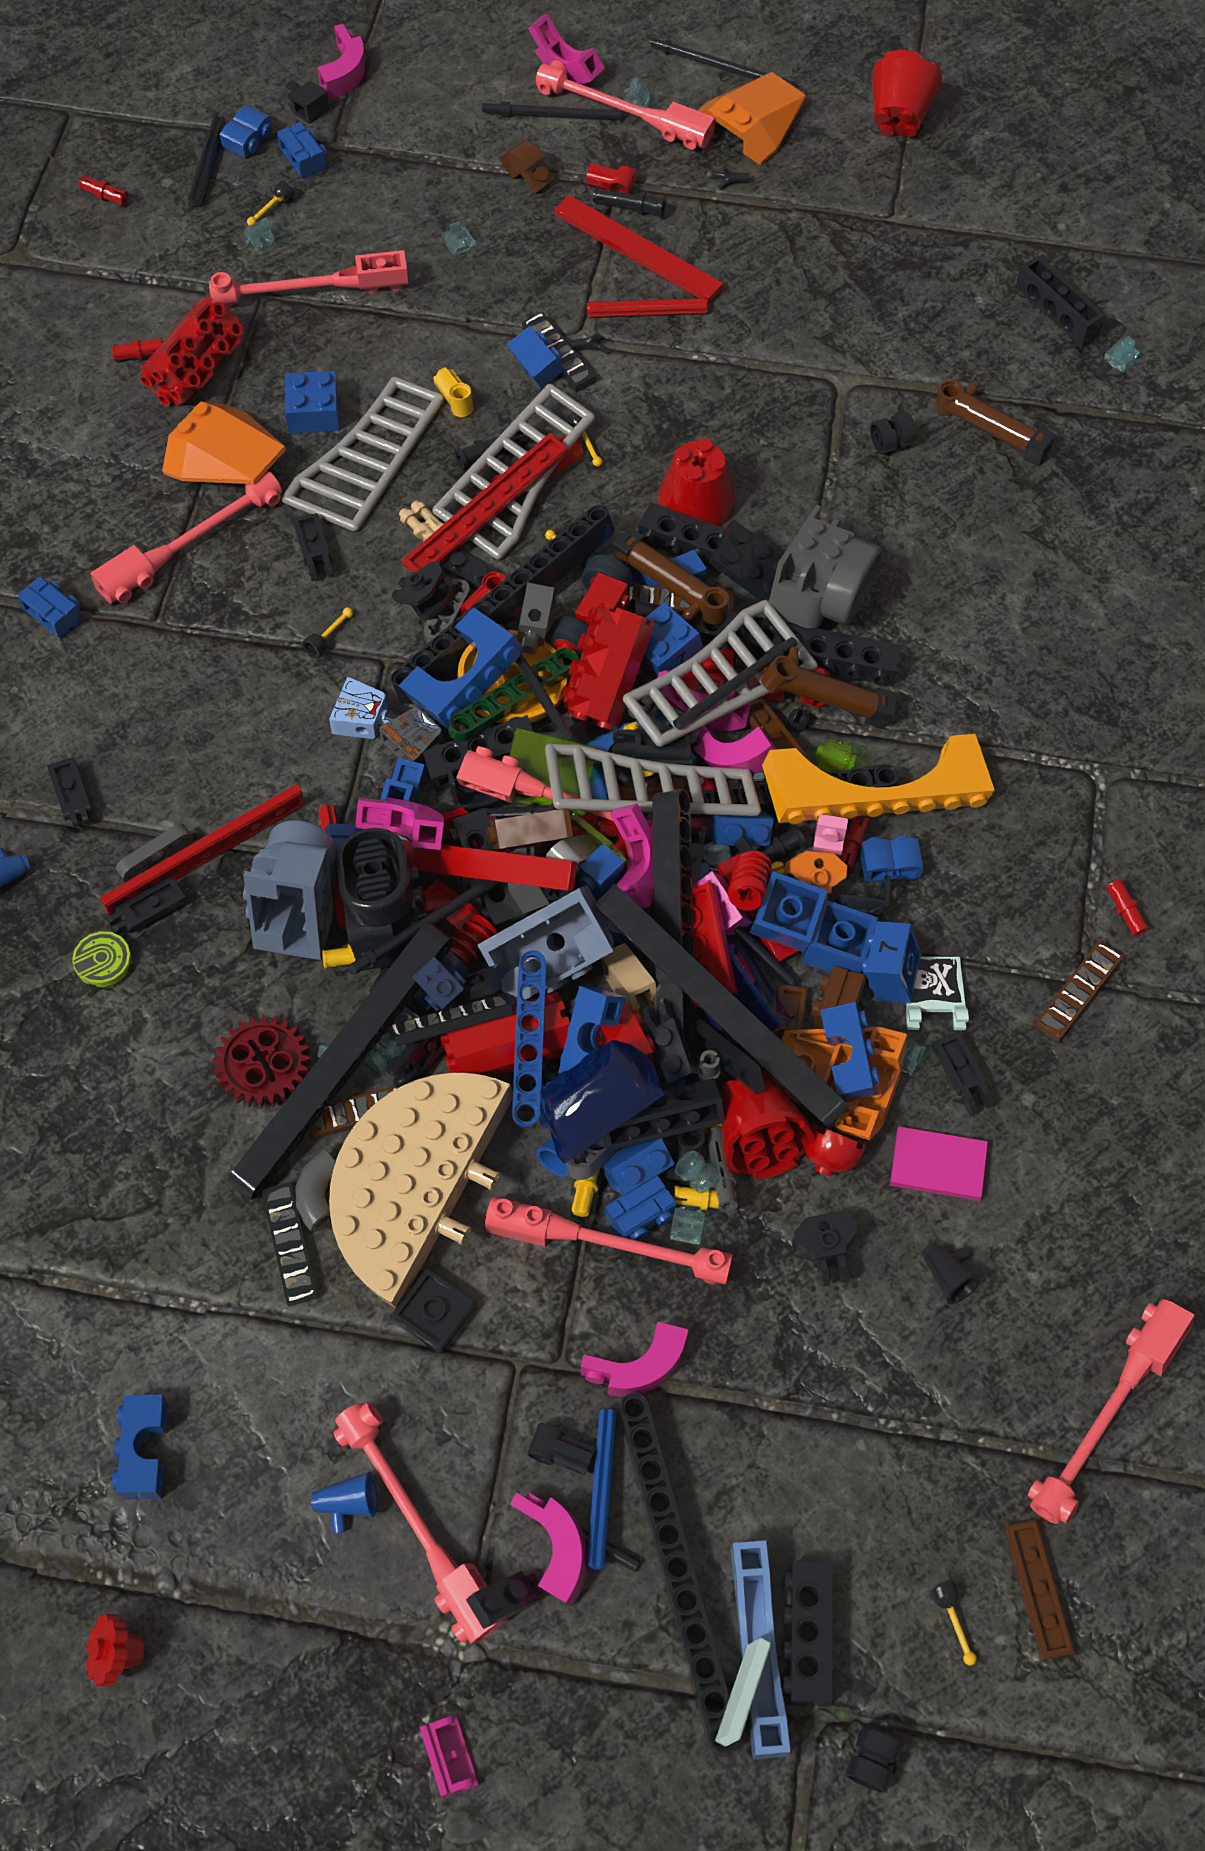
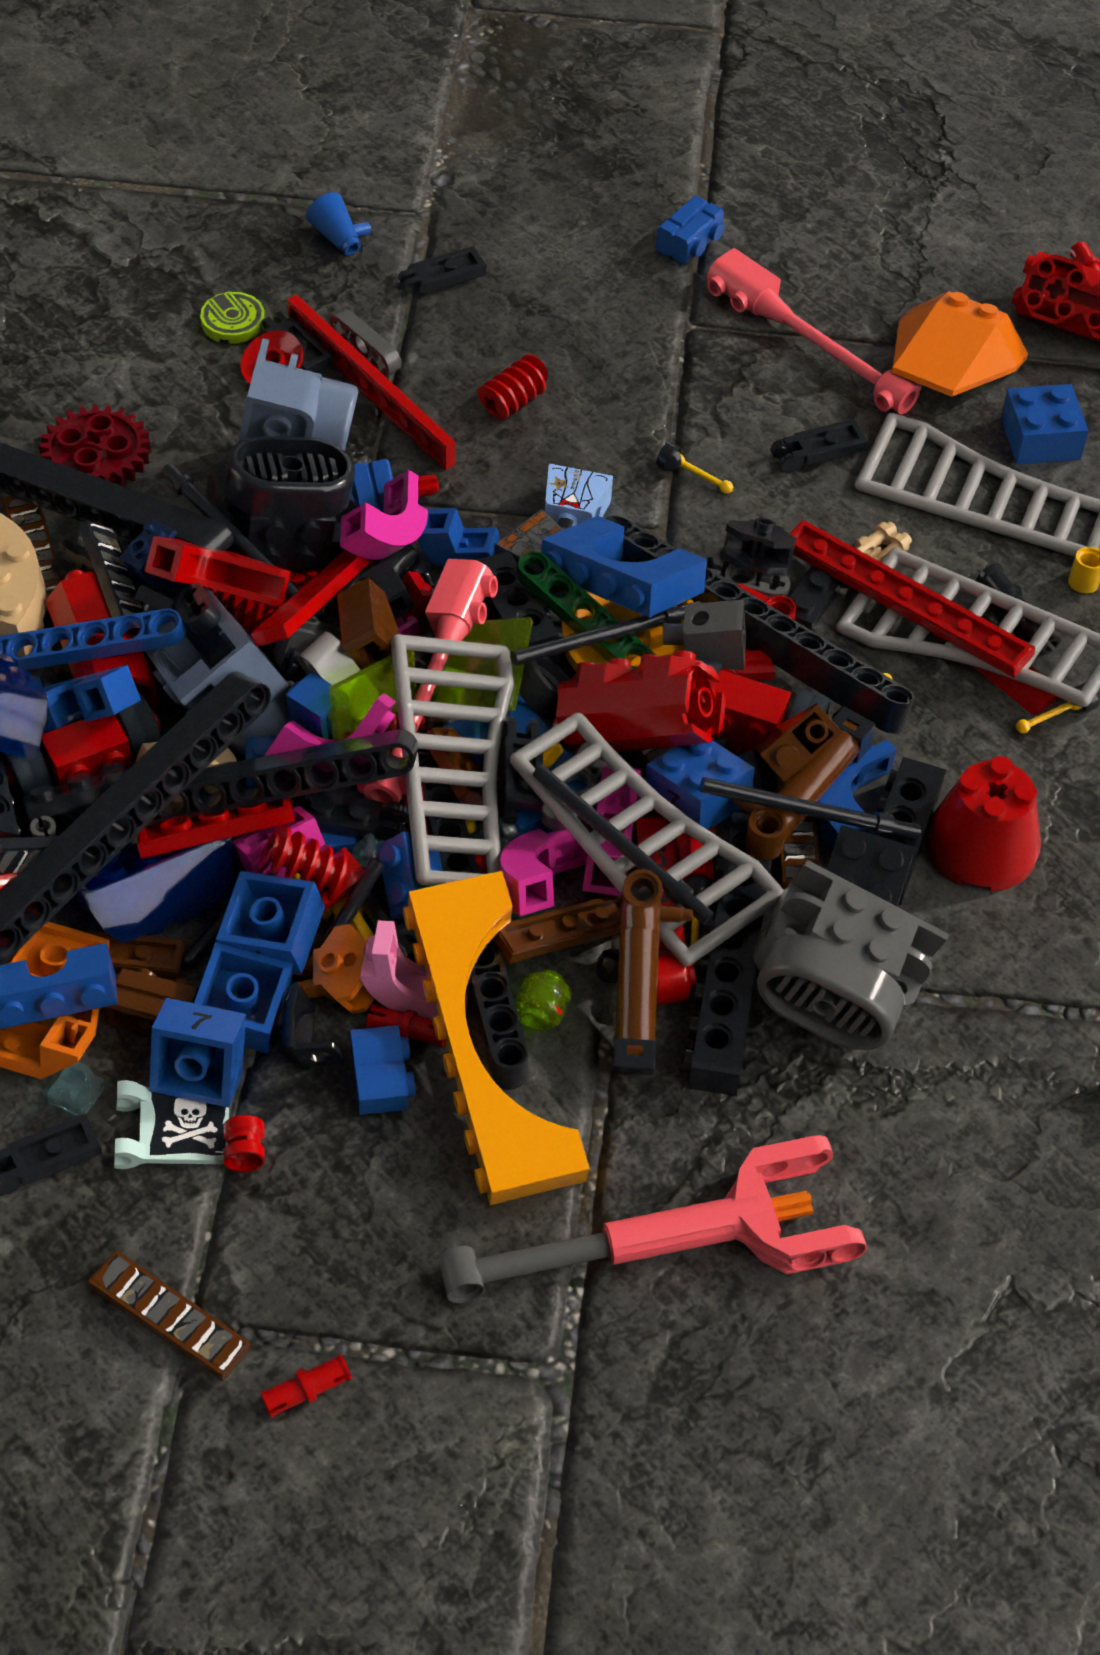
camera: 85 degrees right, 10 degrees down
(171, 907) = (279, 350): none -> red dish
(229, 743) = (514, 387): none -> red piece
(467, 927) = (217, 570): none -> red arch
(516, 949) = (197, 609): none -> black beam
(647, 574) = (798, 741): none -> reddish brown slope
(707, 541) = (879, 824): none -> black bar
(952, 942) = (244, 1145): none -> red wheel
(997, 658) = (742, 1215): none -> coral piece

